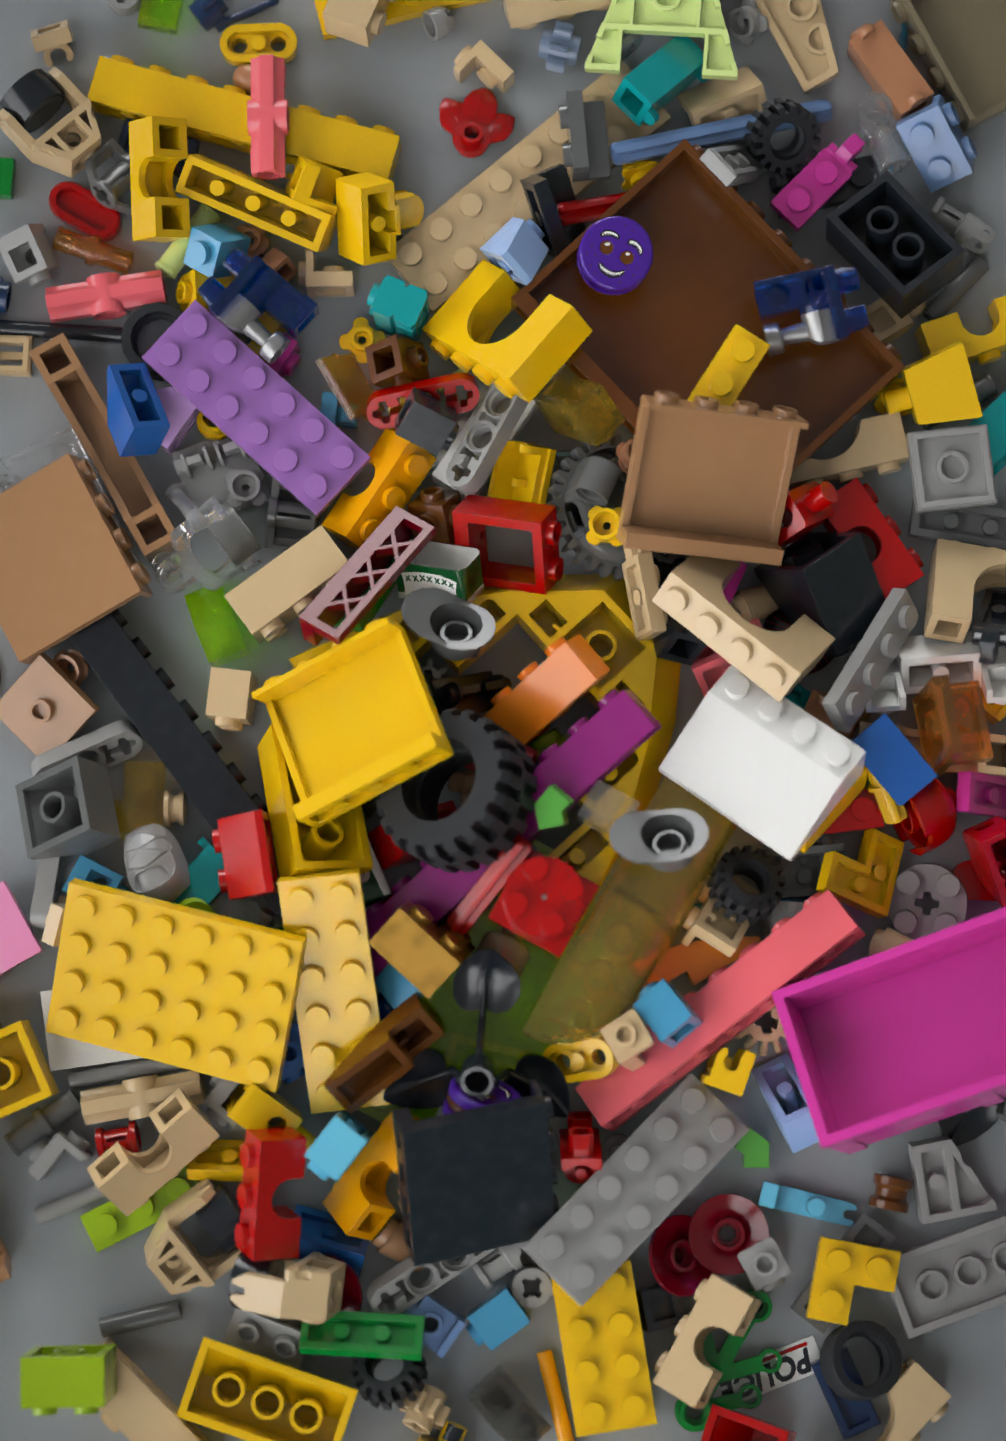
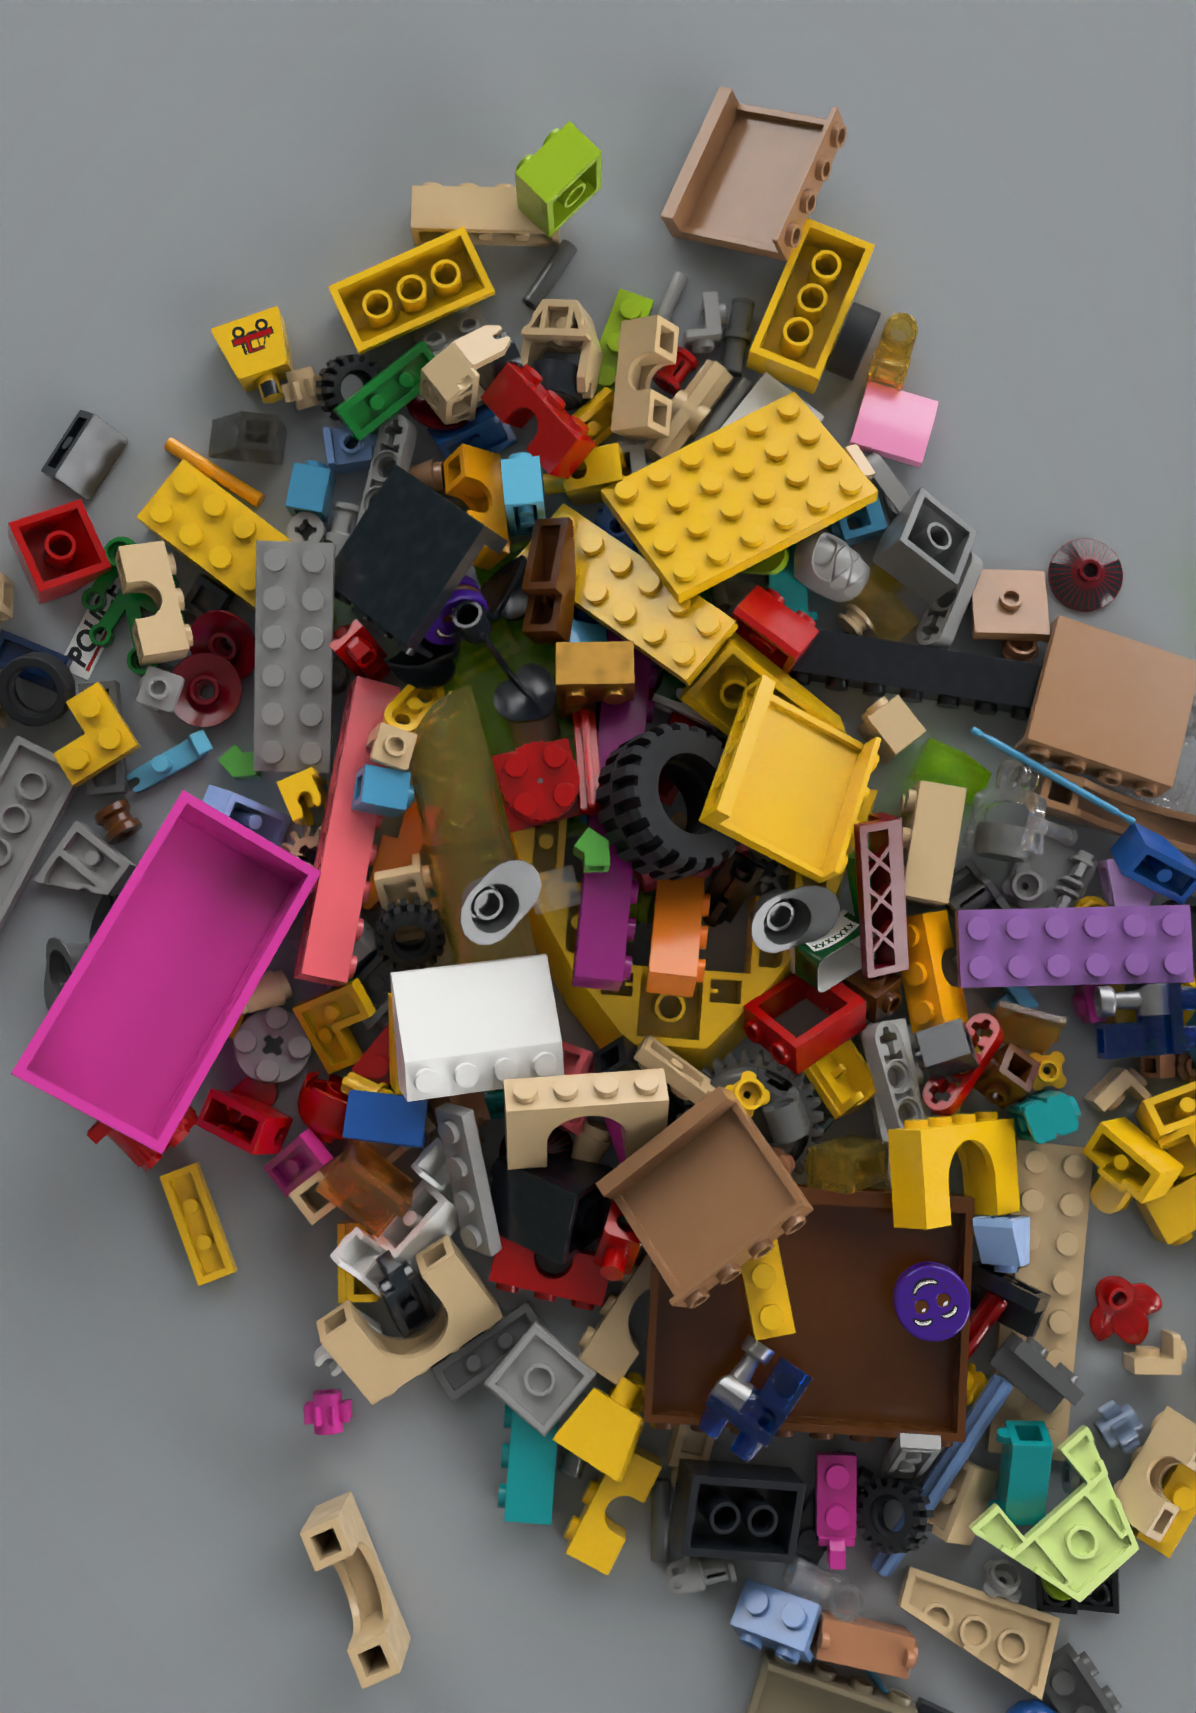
camera: 140 degrees right, 0 degrees up
(147, 546) = (1052, 775): none -> dark azure piece

